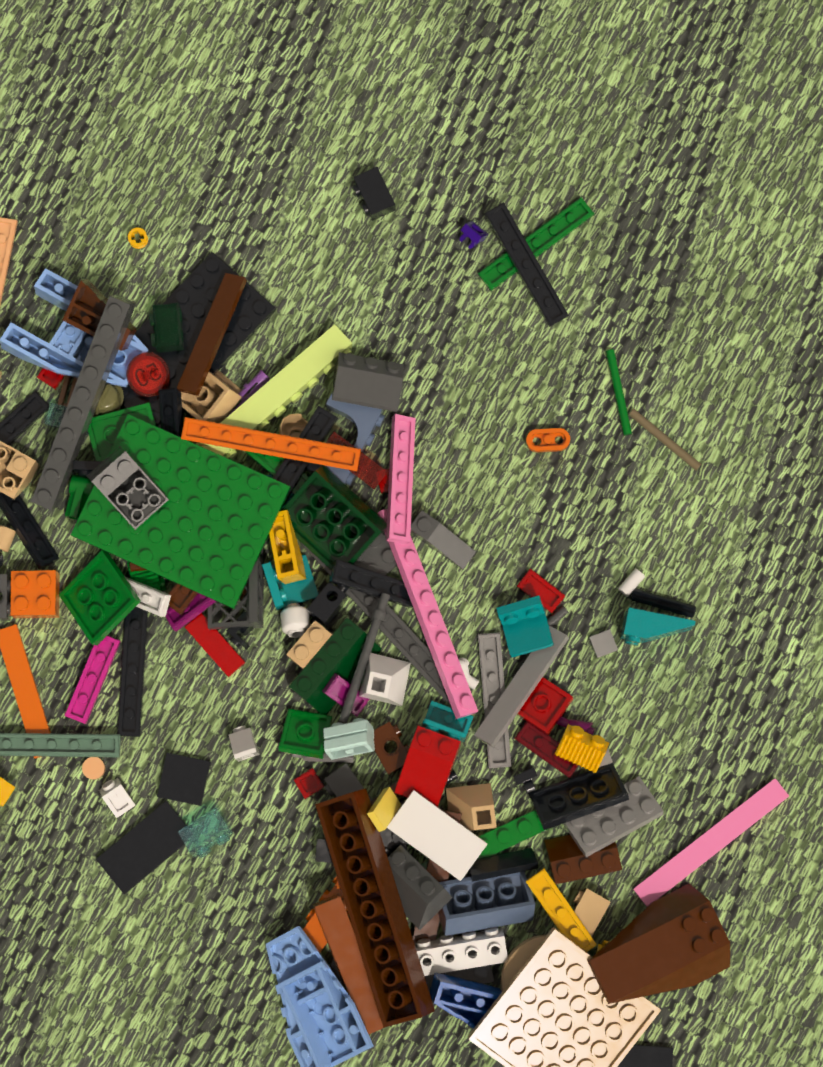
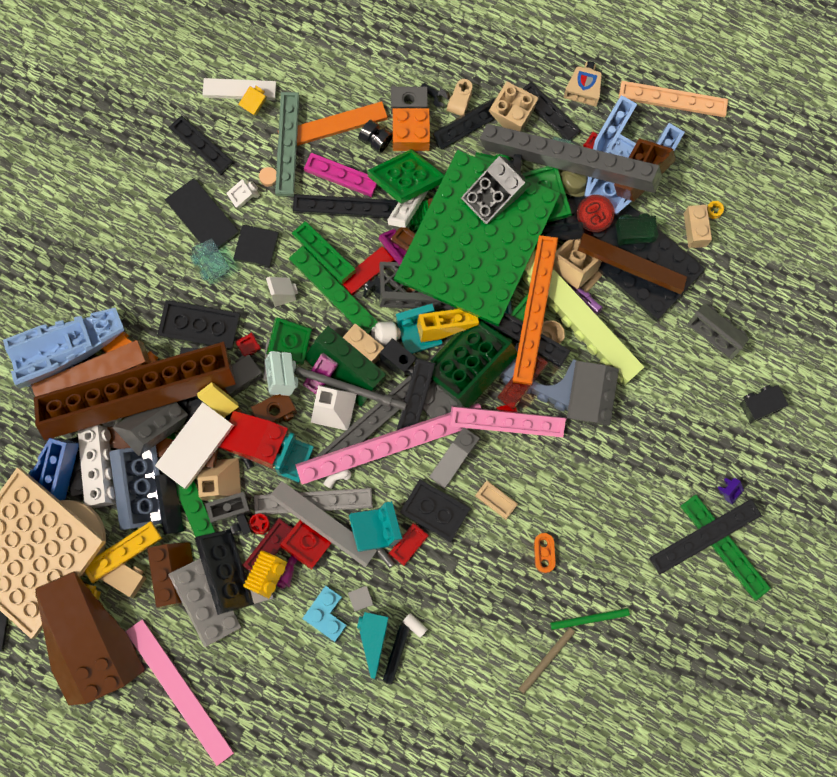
camera: 85 degrees right, 5 degrees down
(42, 645) = (375, 136): none -> black wheel
(51, 854) = (201, 145): none -> black tile
(160, 258) = (697, 226): none -> tan brick
(194, 696) = (323, 252): none -> green plate
(240, 684) = (332, 289): none -> green plate
(285, 842) = (198, 324): none -> black plate
(288, 239) = (718, 331): none -> dark grey slope
(488, 493) = (496, 500): none -> tan tile
(503, 561) = (435, 511): none -> black plate
(507, 795) = (228, 508): none -> dark grey brick
(517, 761) = (259, 520): none -> red wheel
(622, 688) = (320, 614): none -> medium azure plate

